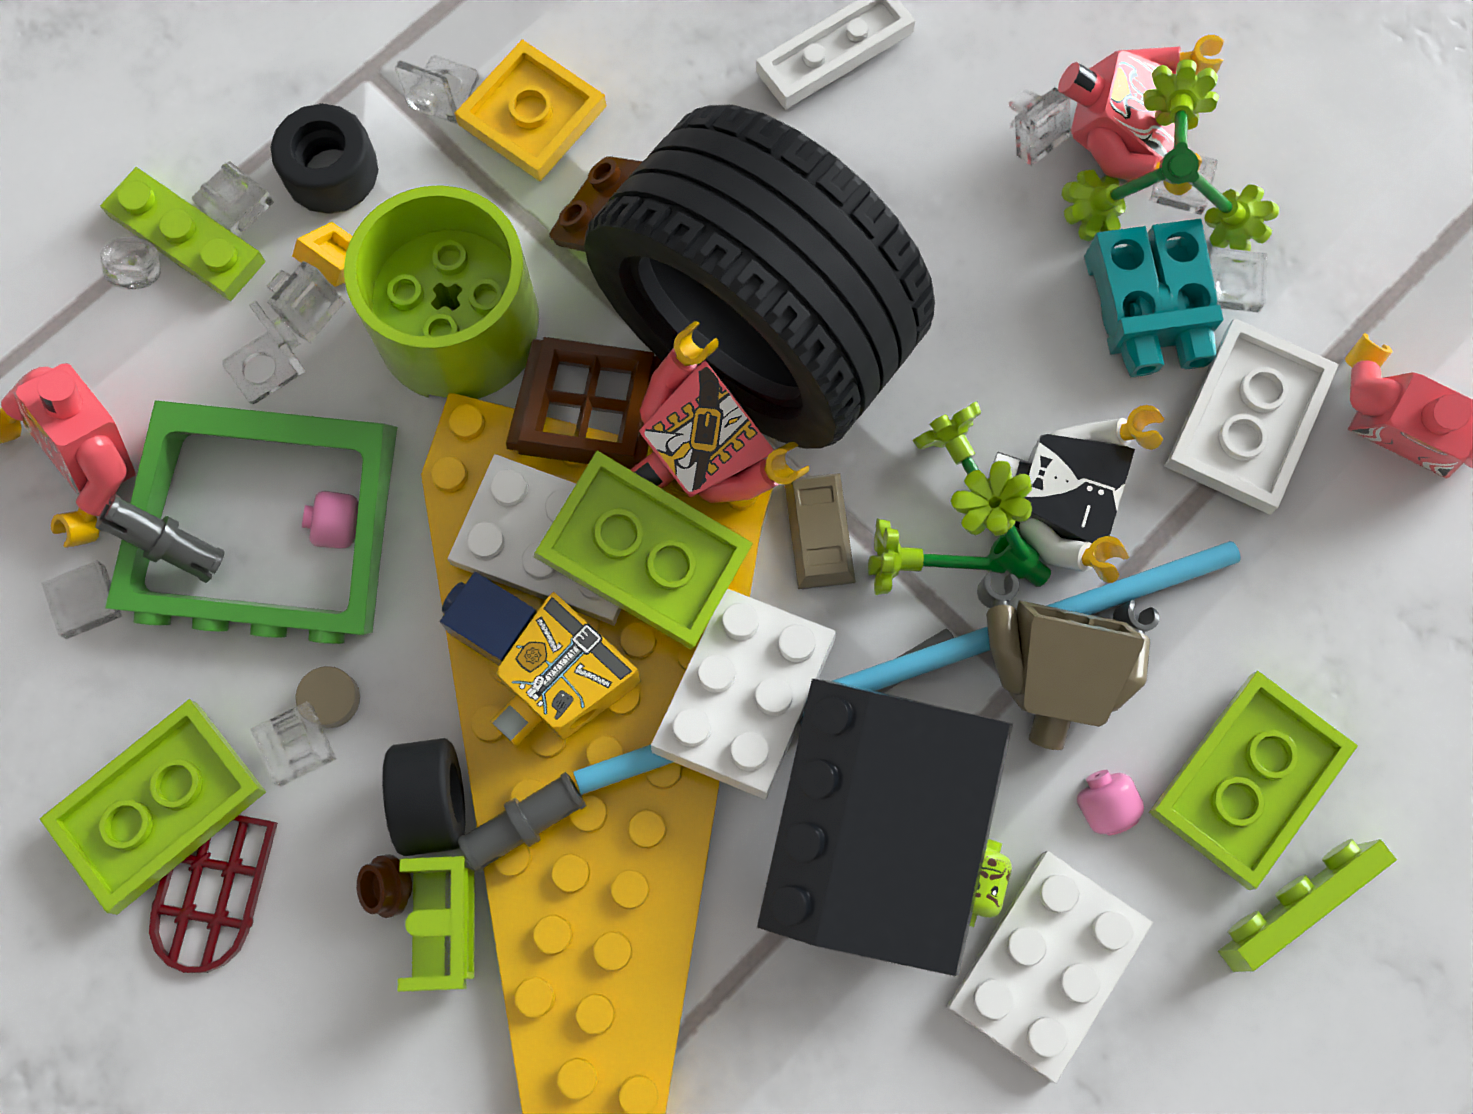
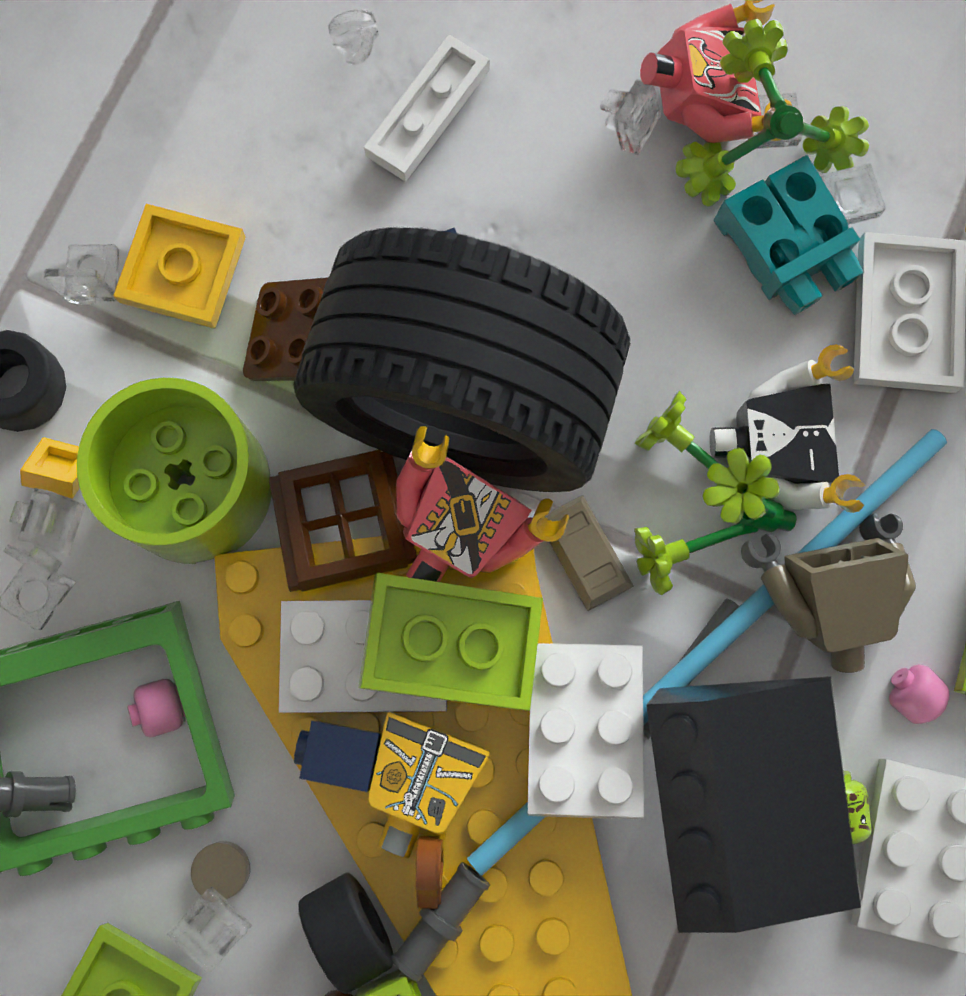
camera: 20 degrees left, 5 degrees up
(530, 764) = (429, 871): none -> dark orange tile

